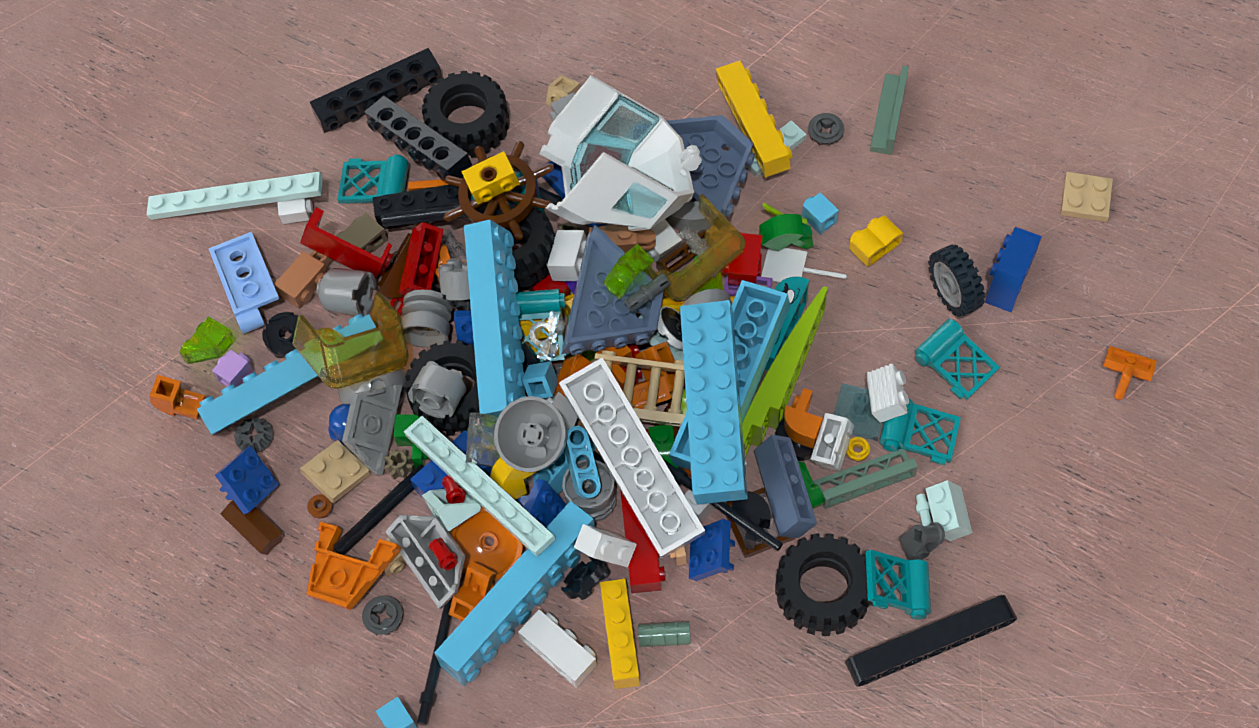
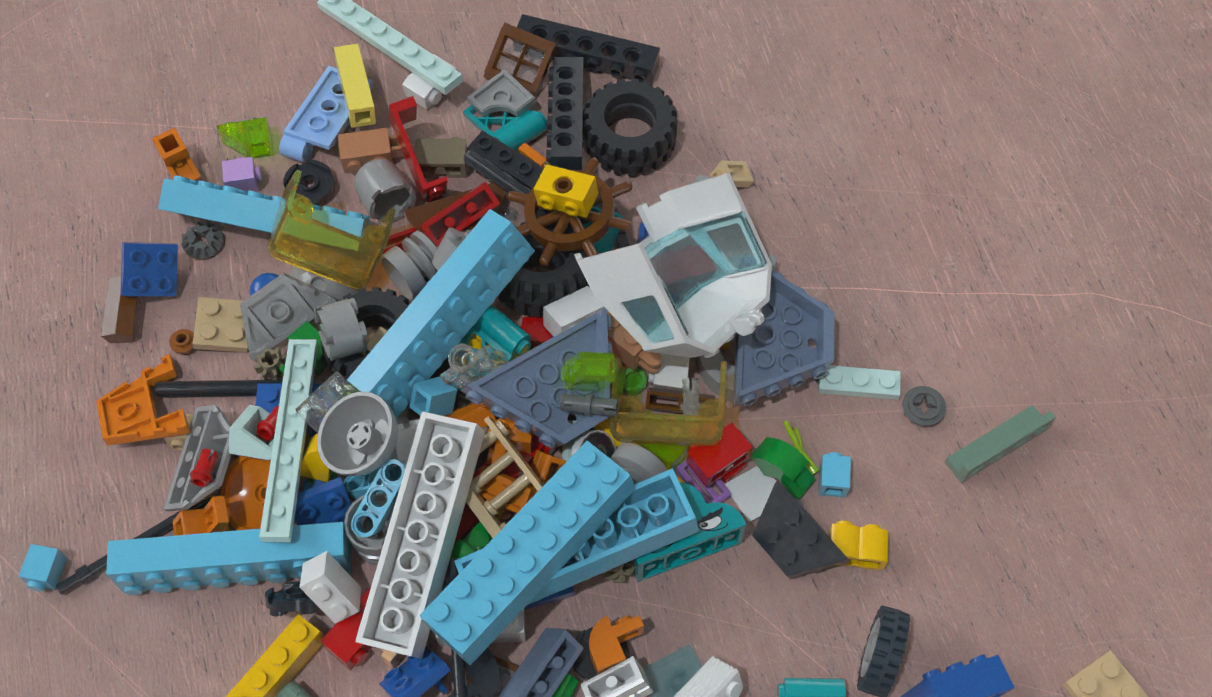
camera: 40 degrees right, 0 degrees up
(248, 242) = (354, 85): none -> light yellow brick
(341, 133) = (522, 56): none -> reddish brown piece
(355, 165) = (501, 94): none -> light grey tile
(377, 606) = (116, 471): dark grey gear -> none
(558, 648) = (216, 635): white brick -> none
(753, 118) = (863, 339): yellow brick -> none
(778, 385) = (636, 587): lime slope -> none
(836, 267) = (794, 537): none -> black wing

